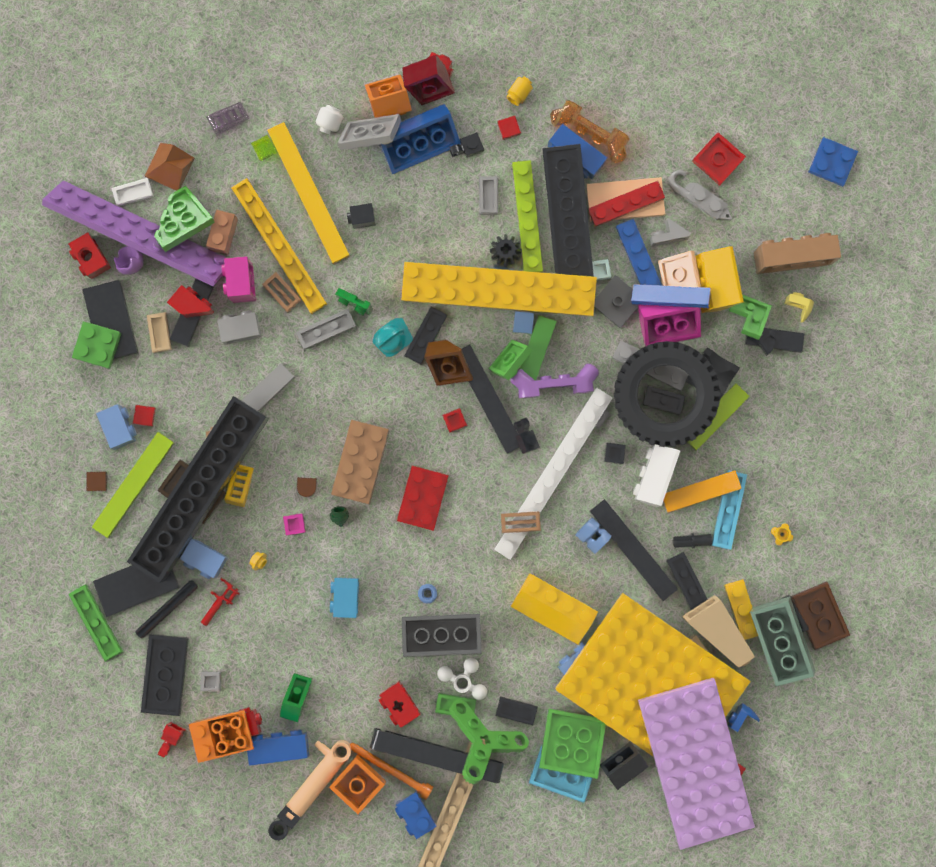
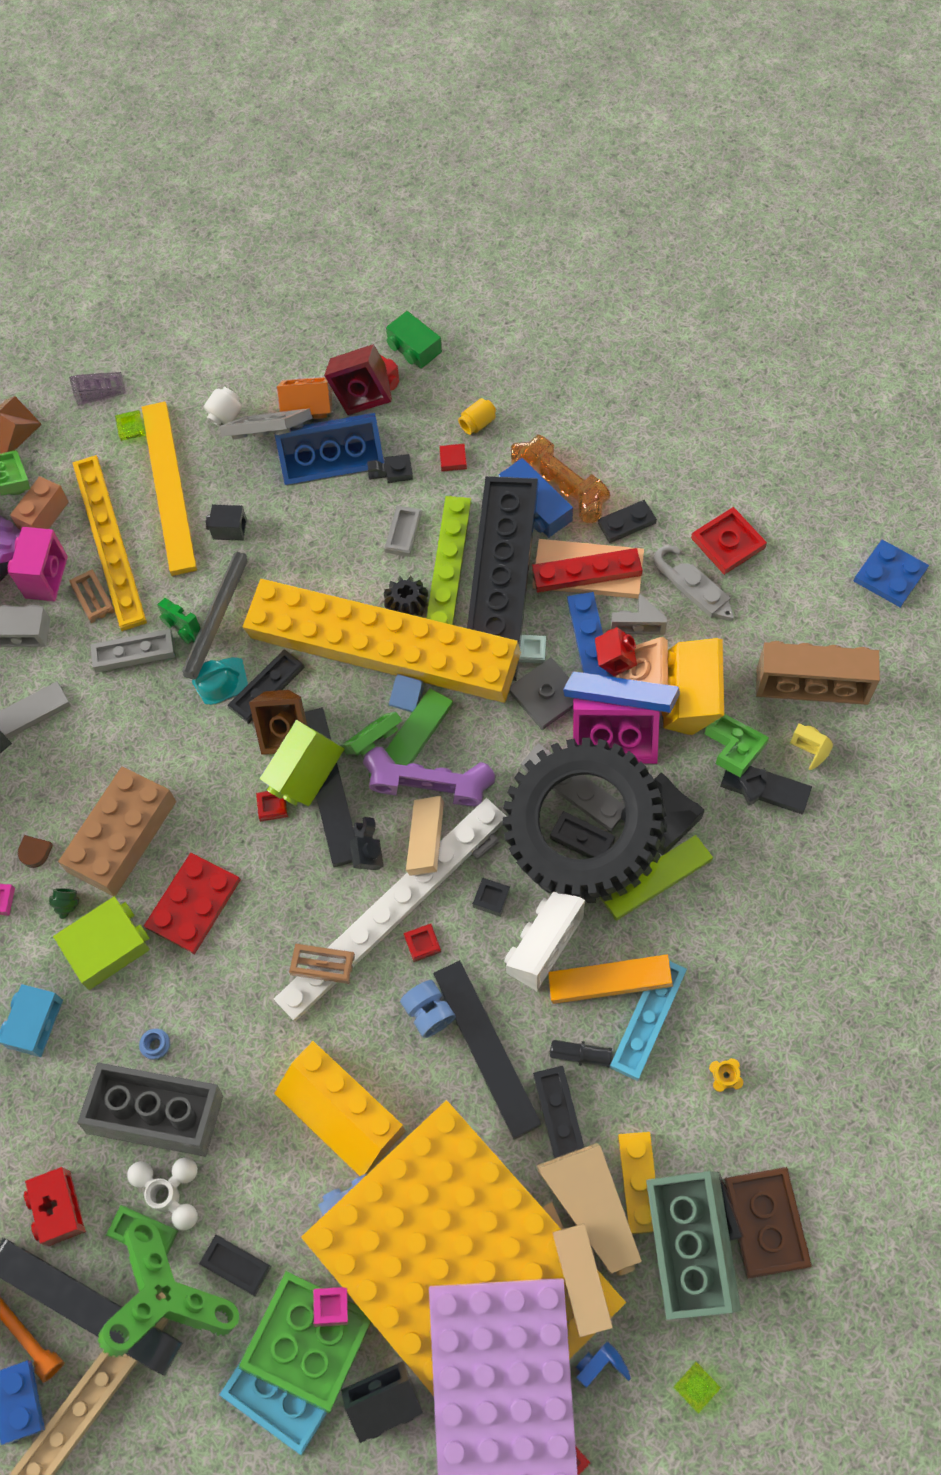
camera: 20 degrees right, 20 degrees down
(374, 537) = (102, 942): none -> lime brick
(377, 292) = (214, 616): none -> dark grey axle
(455, 32) = (413, 340): none -> green brick
(472, 394) = (301, 765): none -> lime brick
(563, 422) = (425, 836): none -> tan tile
(577, 492) = (422, 942): none -> red tile
(582, 723) = (330, 1307): none -> dark pink plate
(644, 156) = (627, 521): none -> black plate
(660, 264) = (616, 651): none -> red brick
(724, 676) = (582, 1280): none -> tan tile
(796, 715) = (696, 1387): none -> clear neon green plate

